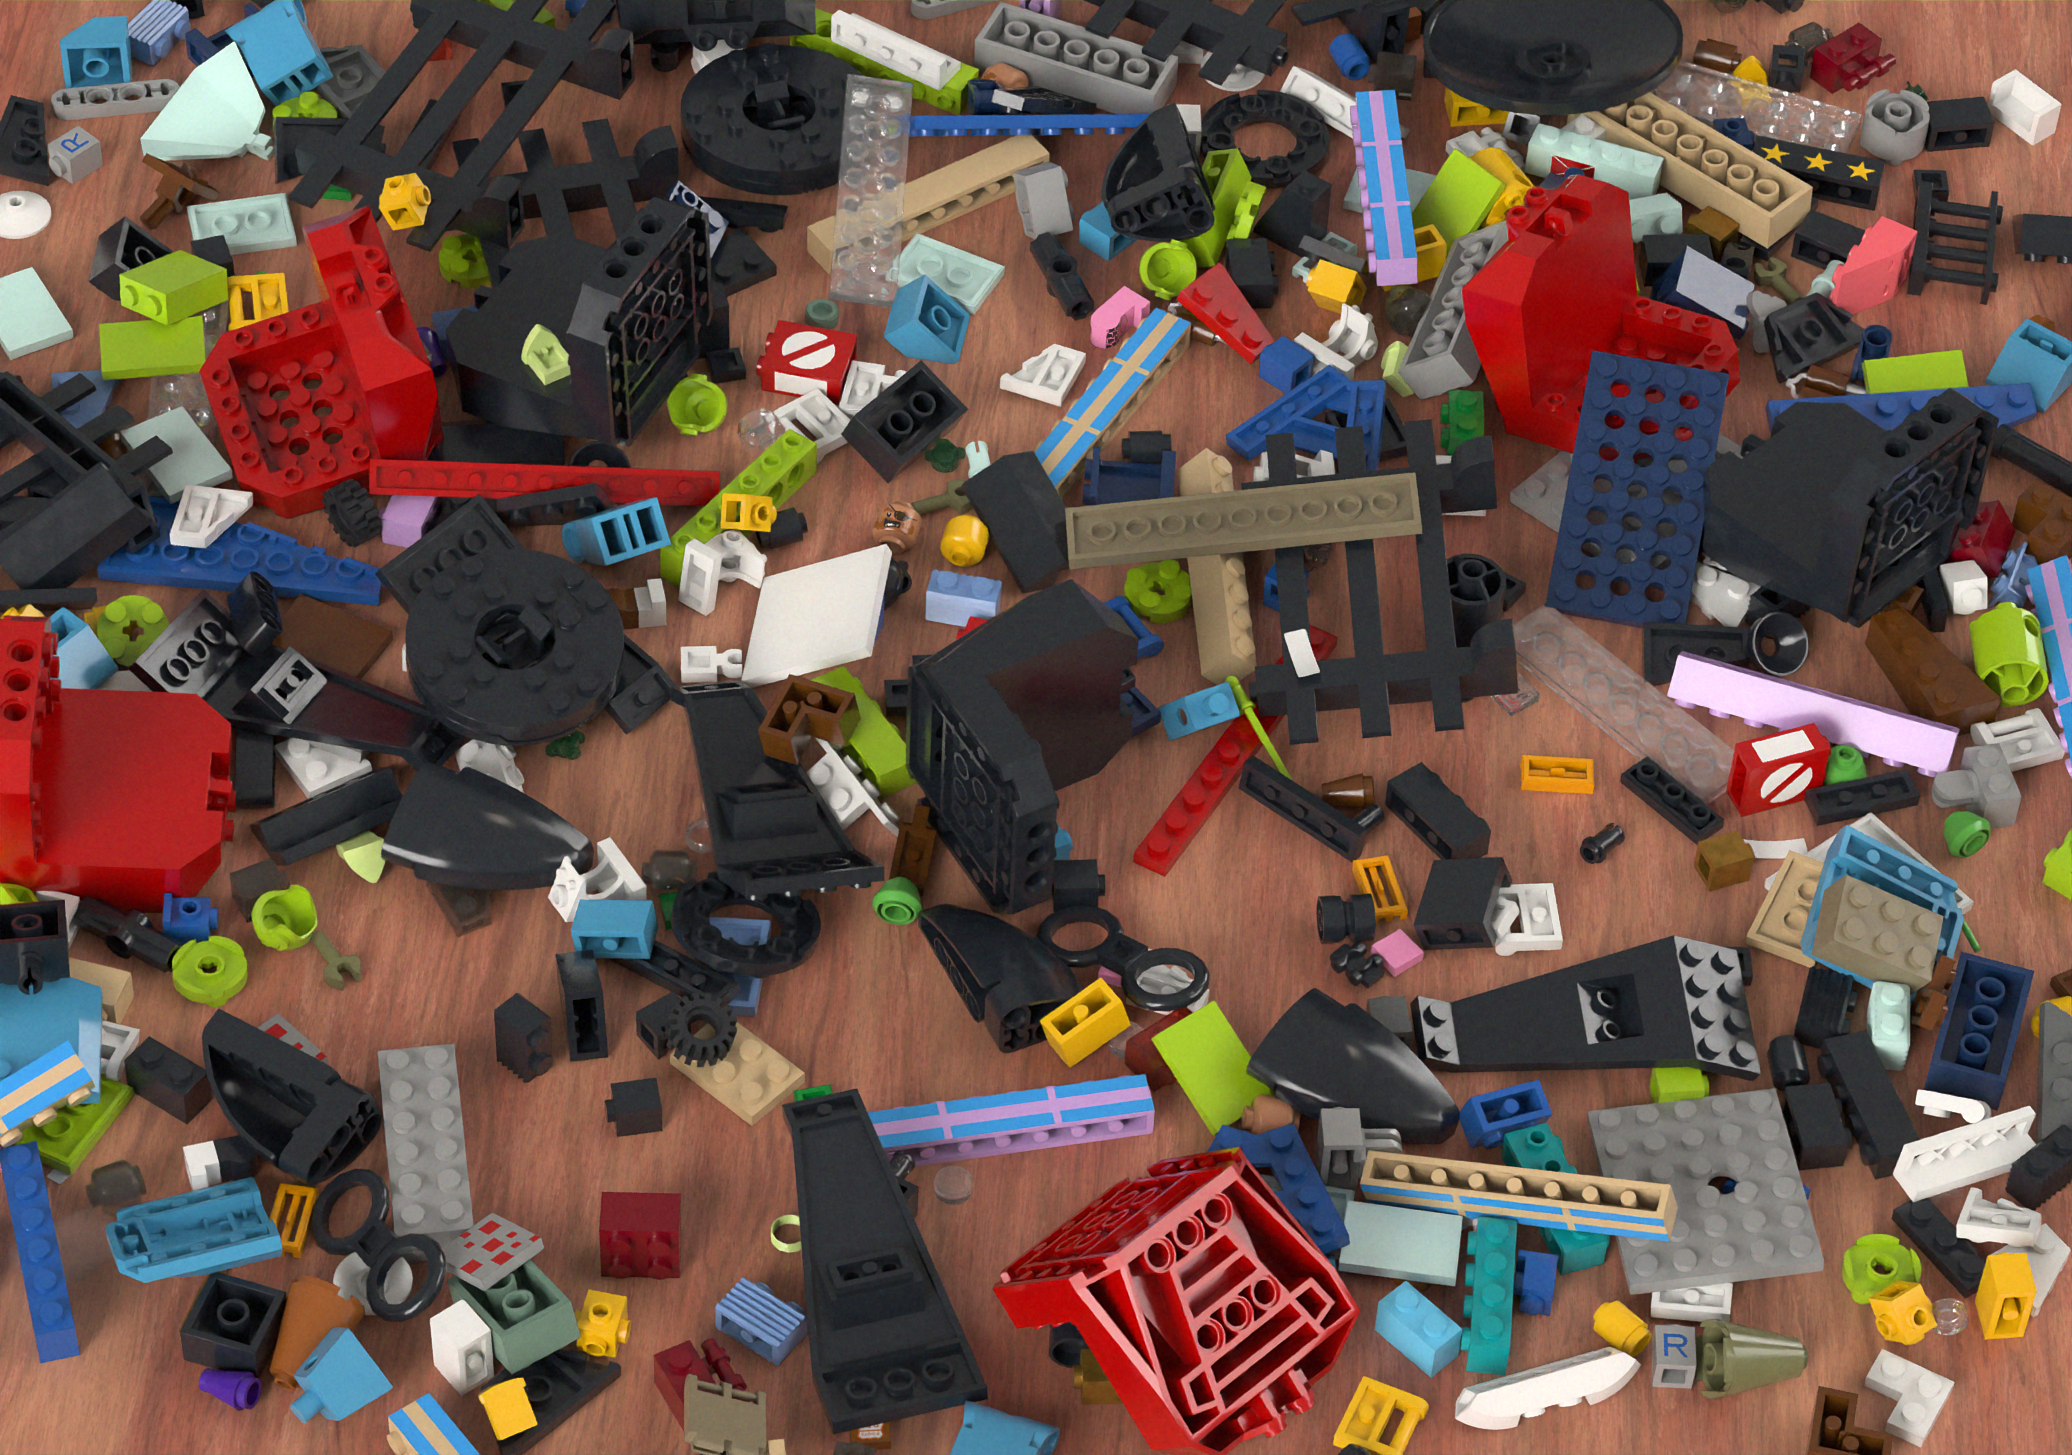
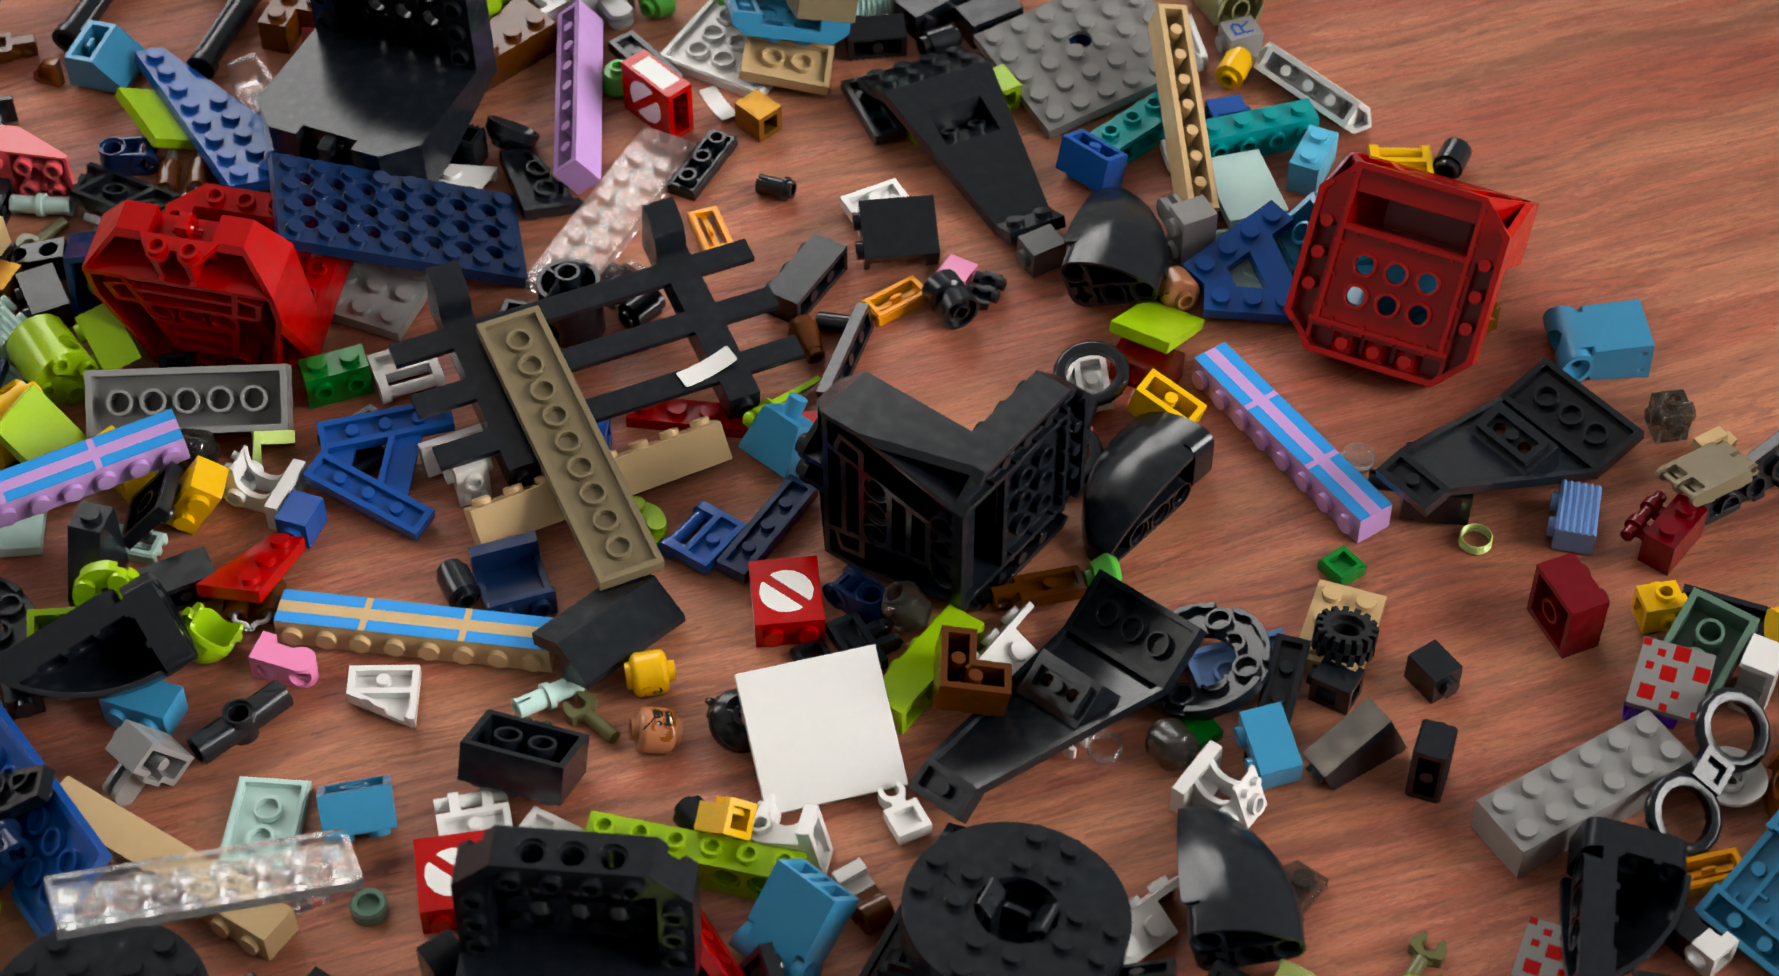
camera: 110 degrees left, 0 degrees up
(956, 597) = (726, 646): medium blue brick -> none

